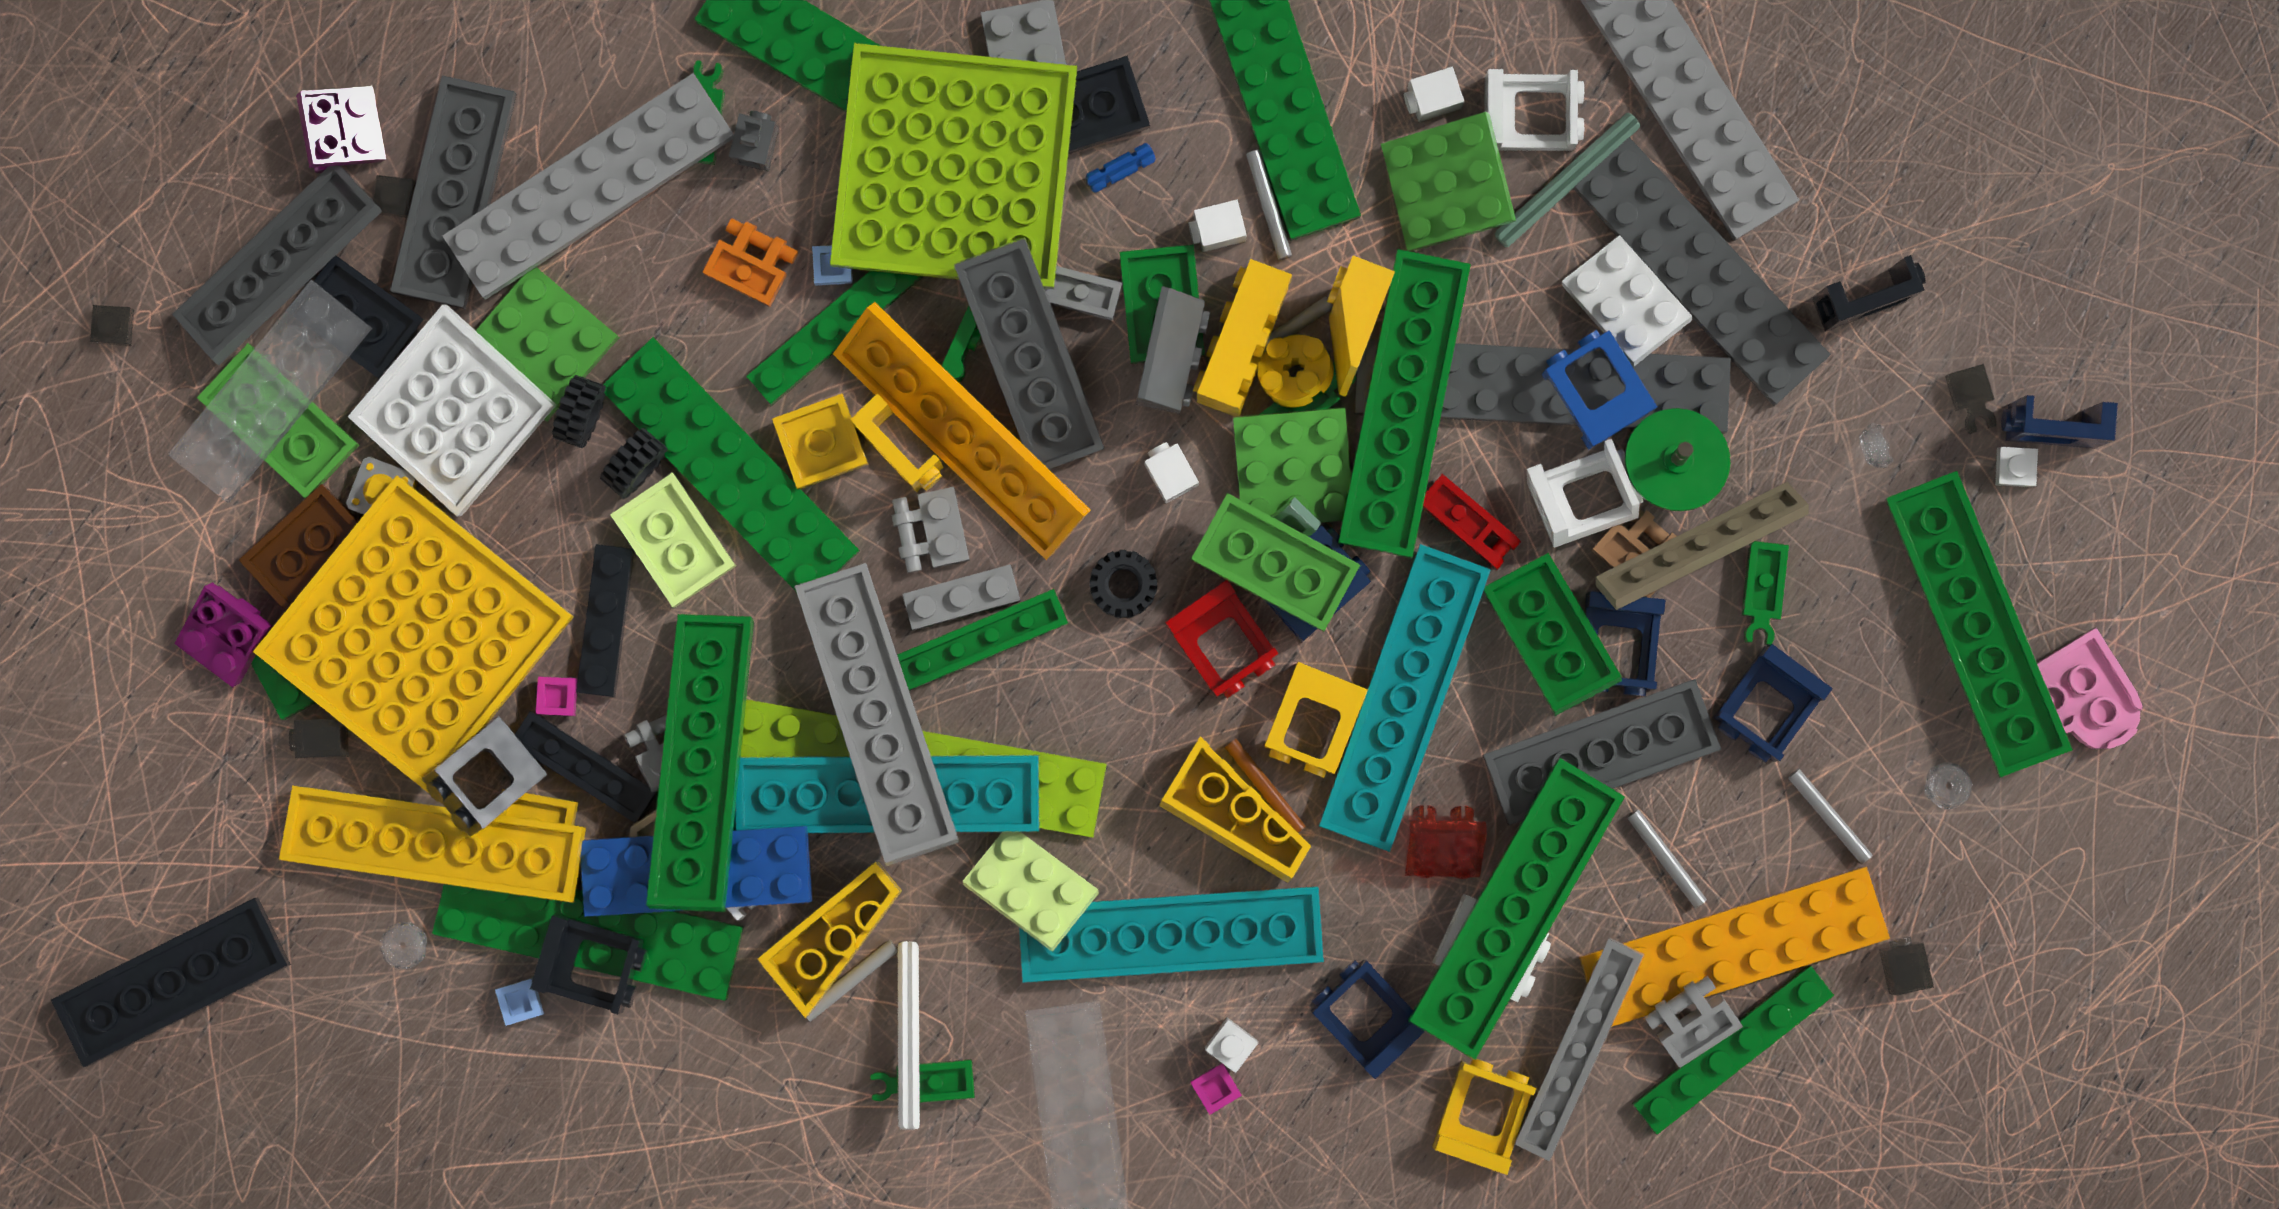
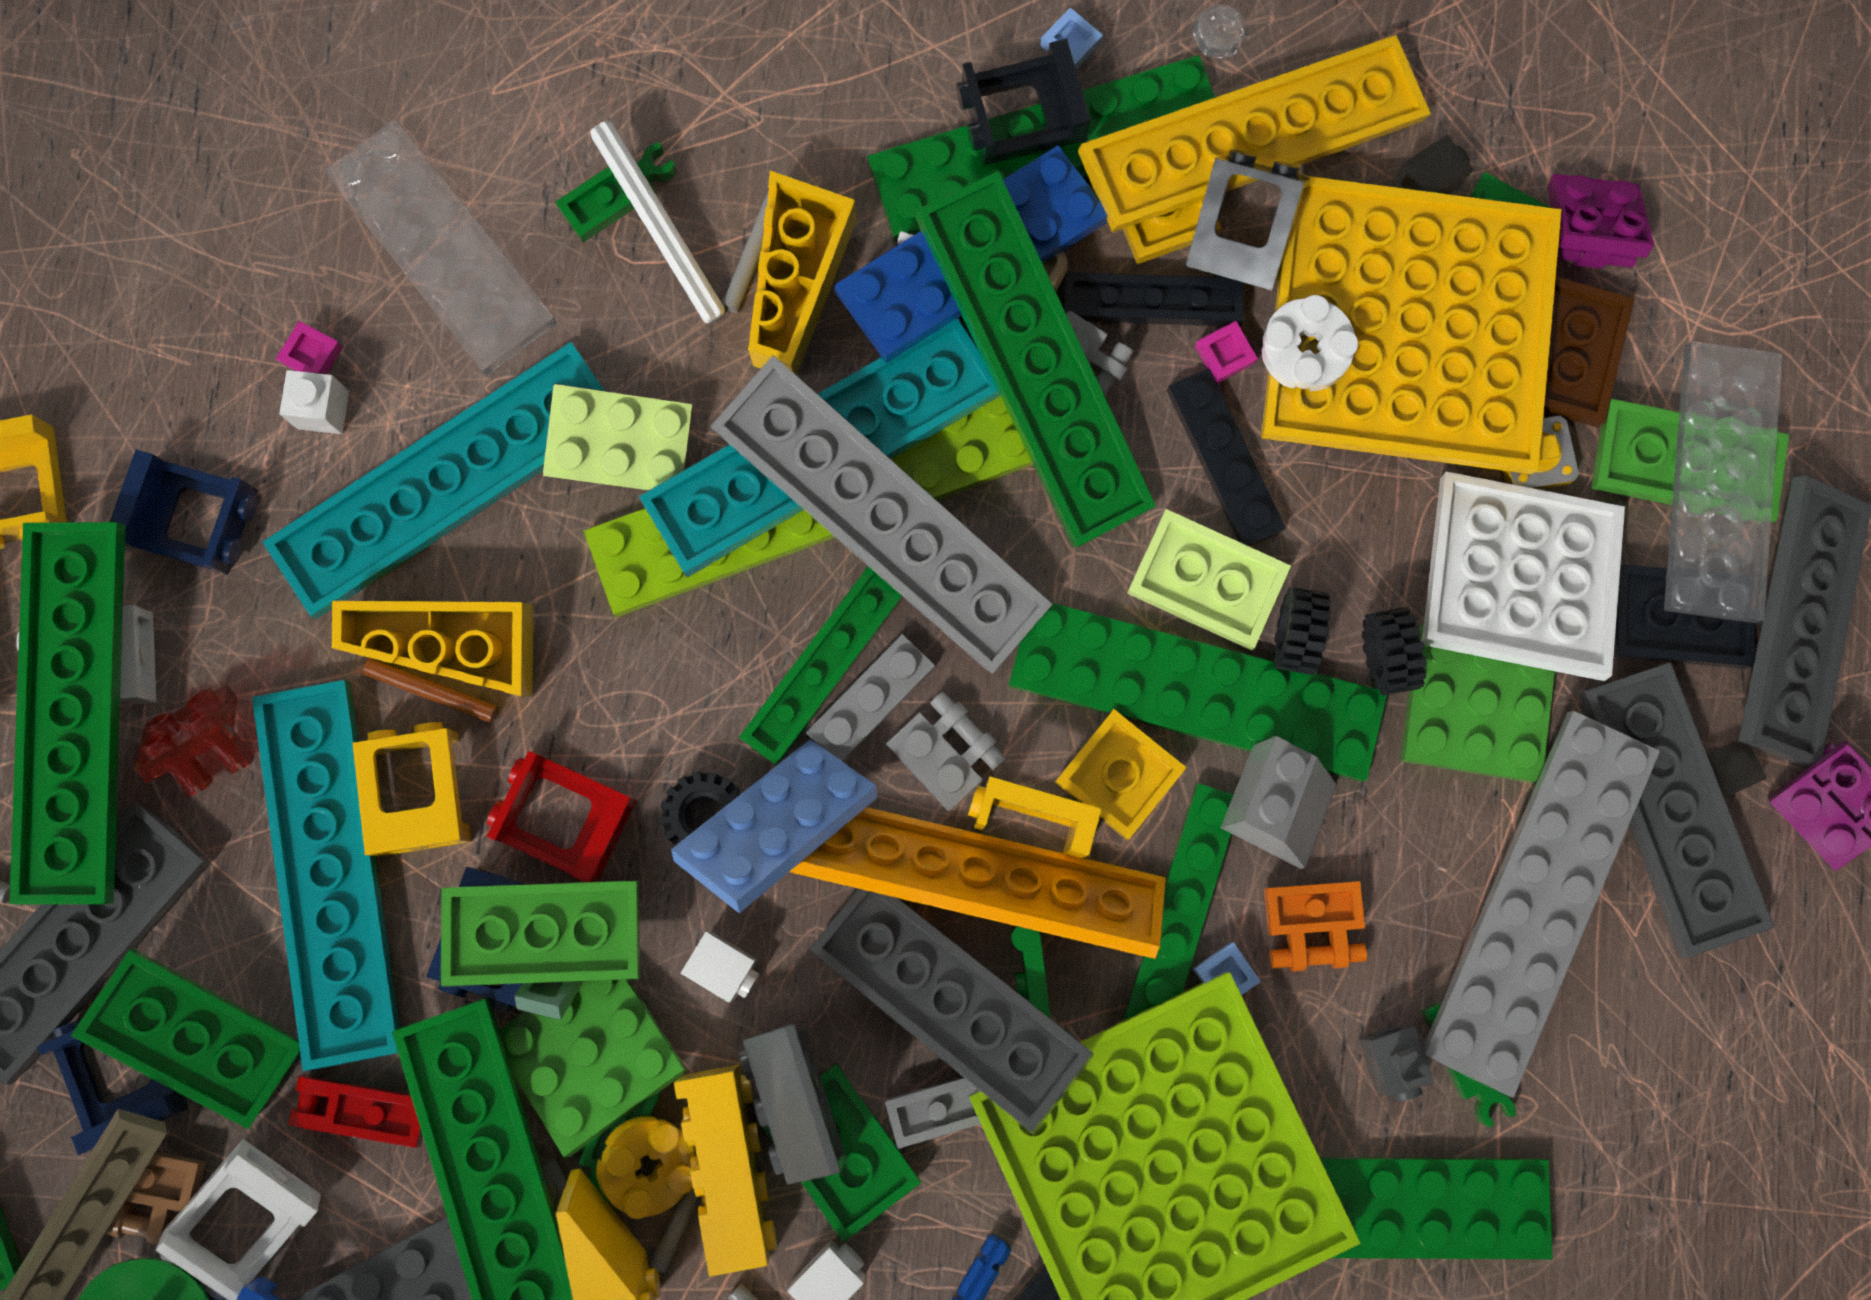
camera: 145 degrees right, 5 degrees down
(516, 673) = (1309, 318): none -> white plate
(722, 357) = (1280, 800): none -> light grey slope
(1075, 542) = (774, 825): none -> medium blue plate

